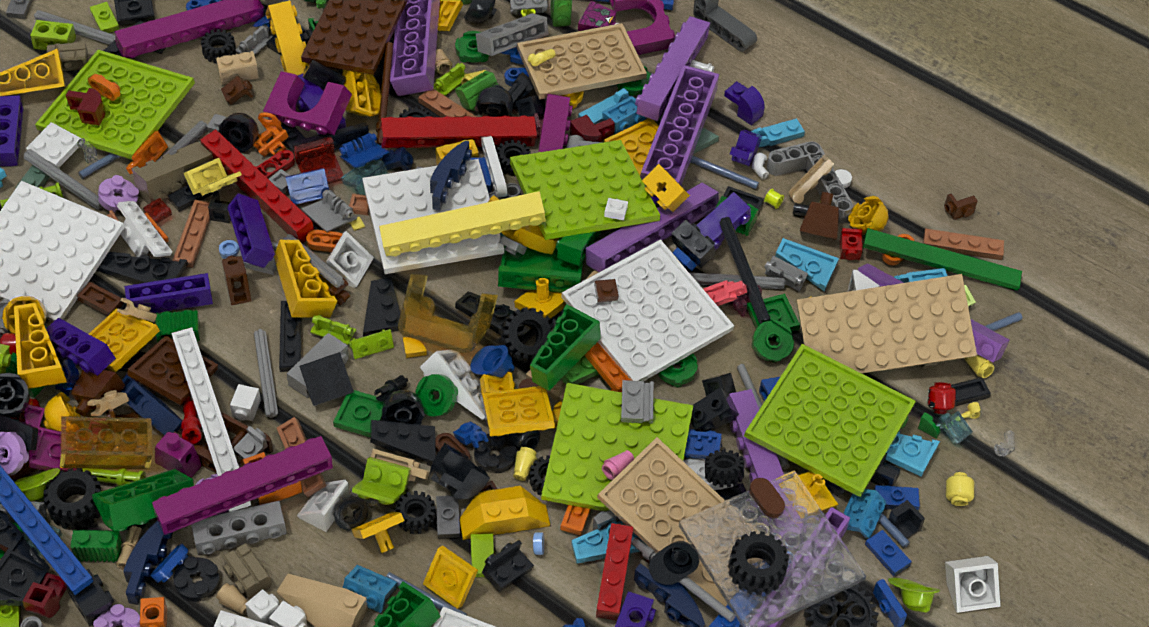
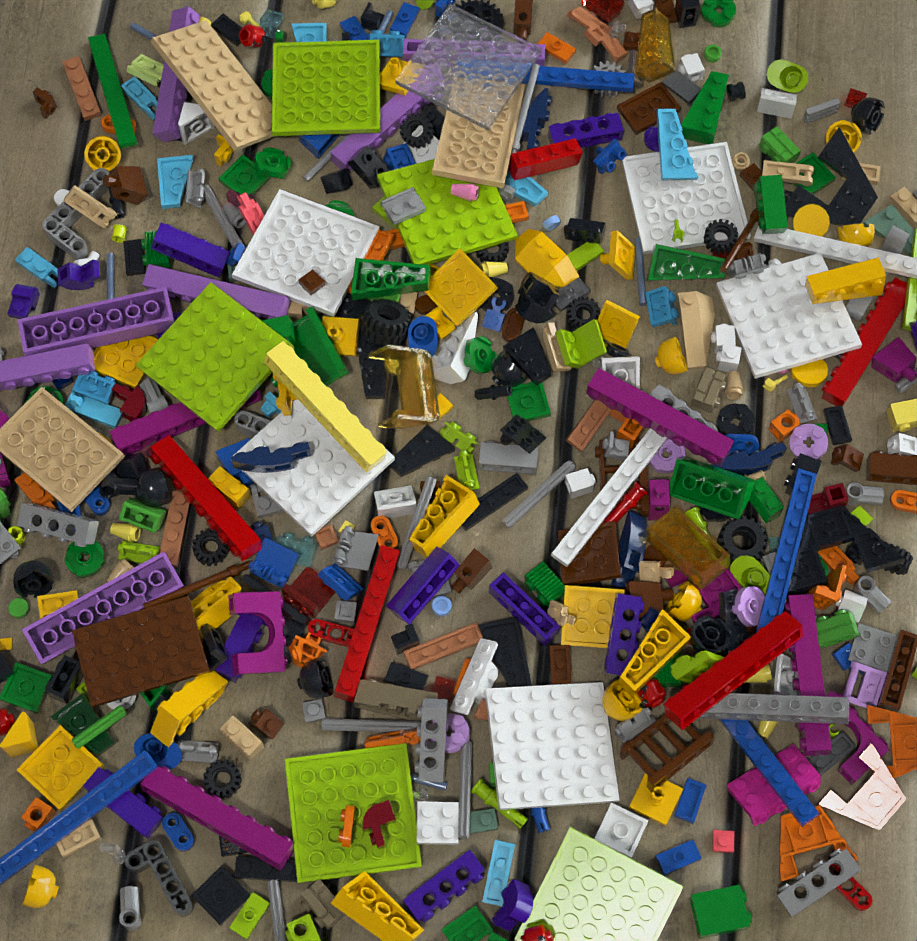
camera: 120 degrees left, 15 degrees up
(114, 163) = (431, 769): none -> light grey brick
(209, 177) = (389, 654): light yellow bracket -> none
(304, 557) = (671, 357): none -> yellow cylinder
(494, 167) = (232, 439): white beam -> none
(510, 149) = (196, 437): black tyre -> none
(541, 57) = (81, 471): light yellow arm -> none
(616, 209) = (232, 308): white plate -> none
(673, 196) = (182, 288): yellow brick -> none
(674, 562) = (517, 116): black piece -> none
(693, 243) = (222, 247): black brick -> none
(744, 270) = (222, 204): black axle -> none
(753, 578) = (493, 69): black tyre -> none
(767, 497) = (432, 82): reddish brown tile -> none
(851, 244) = (136, 157): red brick -> none

